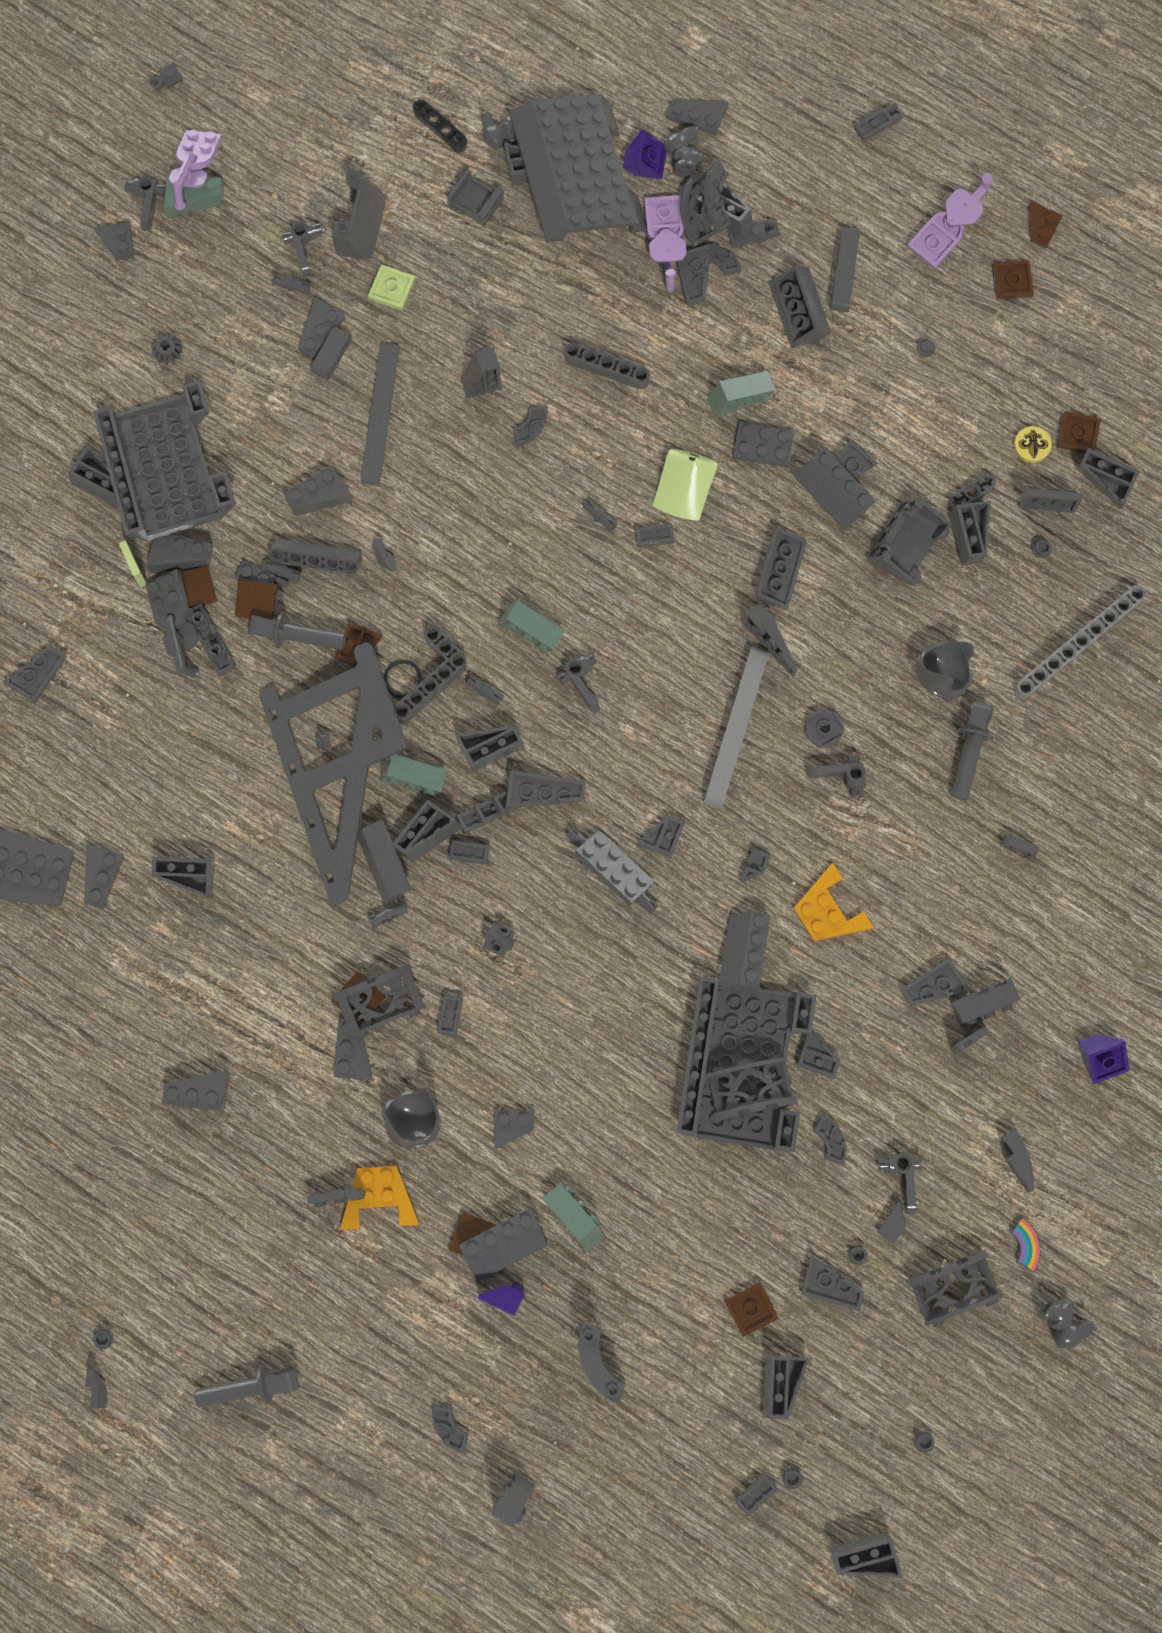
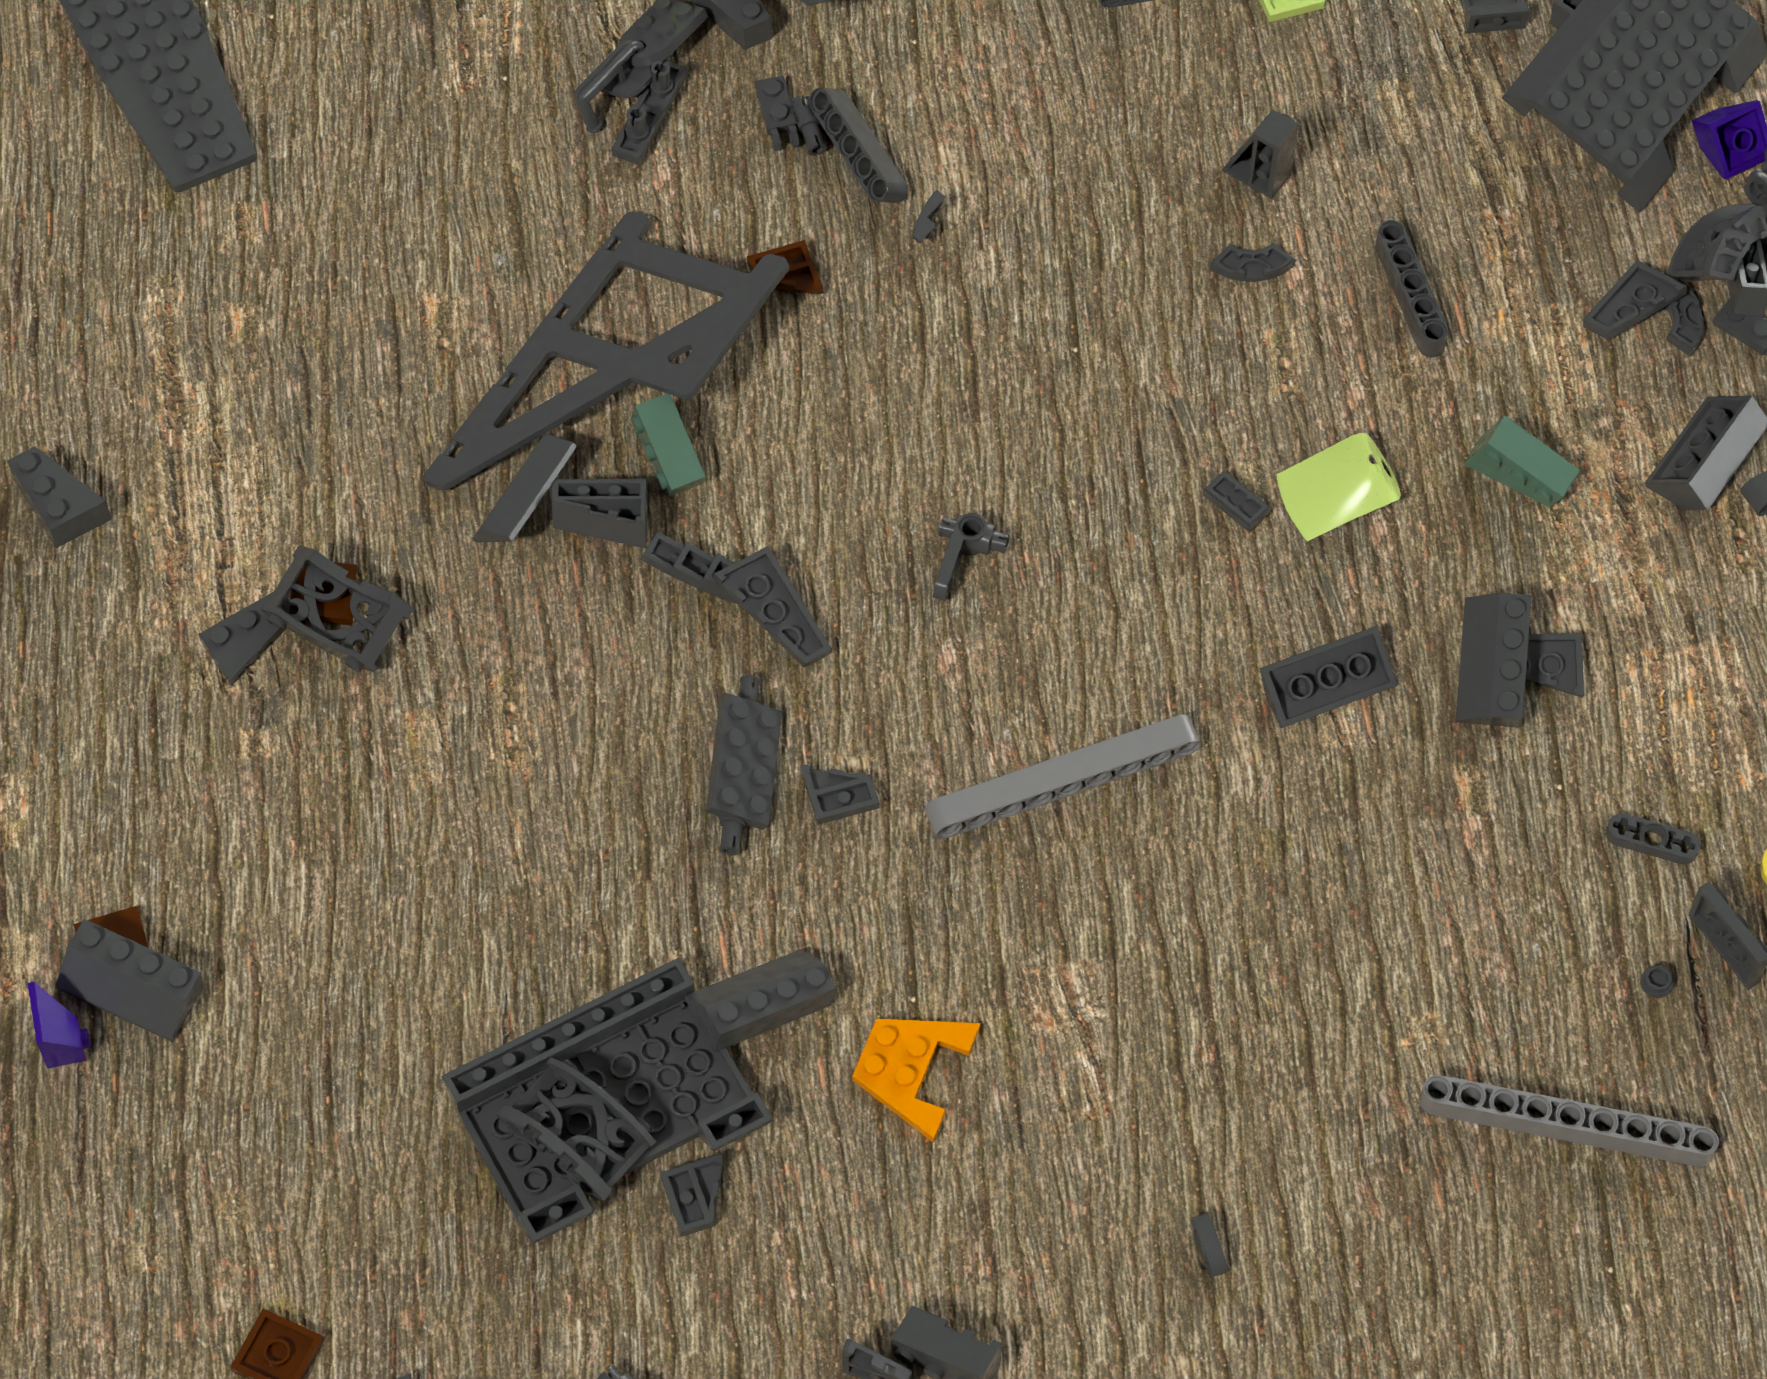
camera: 50 degrees right, 15 degrees down
(100, 875) = (249, 206): dark grey wing -> none
(187, 873) = (327, 289): dark grey wedge -> none
(198, 586) = (707, 53): reddish brown tile -> none
(255, 599) = (743, 123): reddish brown tile -> none
(281, 630) = (728, 173): dark grey piece -> none
(318, 492) = (942, 90): dark grey wedge -> none
(323, 741) = (625, 320): dark grey plate -> none
(337, 1197) = (40, 740): dark grey hinge -> none
(380, 414) = (1109, 90): dark grey tile -> none
(382, 1189) = (90, 787): light orange wing -> none
(388, 915) = (461, 548): dark grey pin -> none
(394, 664) = (788, 329): black piece -> none
(412, 1119) = (206, 749): dark grey piece -> none
(434, 678) = (815, 381): dark grey beam -> none
(450, 1015) = (386, 710): dark grey plate -> none
(469, 852) = (622, 583): dark grey plate -> none
(484, 689) = (853, 452): dark grey pin -> none
(489, 745) = (780, 504): dark grey wedge -> none
(499, 939) = (533, 693): dark grey brick -> none
(512, 1125) = (300, 885): dark grey wing -> none
(531, 626) = (982, 441): sand green wedge -> none
(574, 1217) = (231, 1041): sand green wedge -> none
(594, 1367) = (45, 1195): dark grey fence -> none
(600, 515) = (1205, 421): dark grey pin -> none
(665, 233) = (1651, 229): lavender plate -> none
(756, 864) = (895, 934): dark grey slope -> none
(763, 444) = (1480, 543): dark grey plate -> none
(764, 628) = (1229, 716): dark grey wedge -> none
(823, 739) = (1162, 901): dark grey plate -> none
(833, 1140) = (595, 1295): dark grey tile -> none
(854, 784) = (1121, 949): dark grey piece -> none
(908, 539) = (1510, 805): dark grey windscreen -> none
(935, 984) = (918, 1272): dark grey wing -> none
(946, 669) = (1365, 967): dark grey piece -> none
(971, 530) = (1597, 869): dark grey wedge -> none
(975, 735) = (1316, 1070): dark grey piece -> none

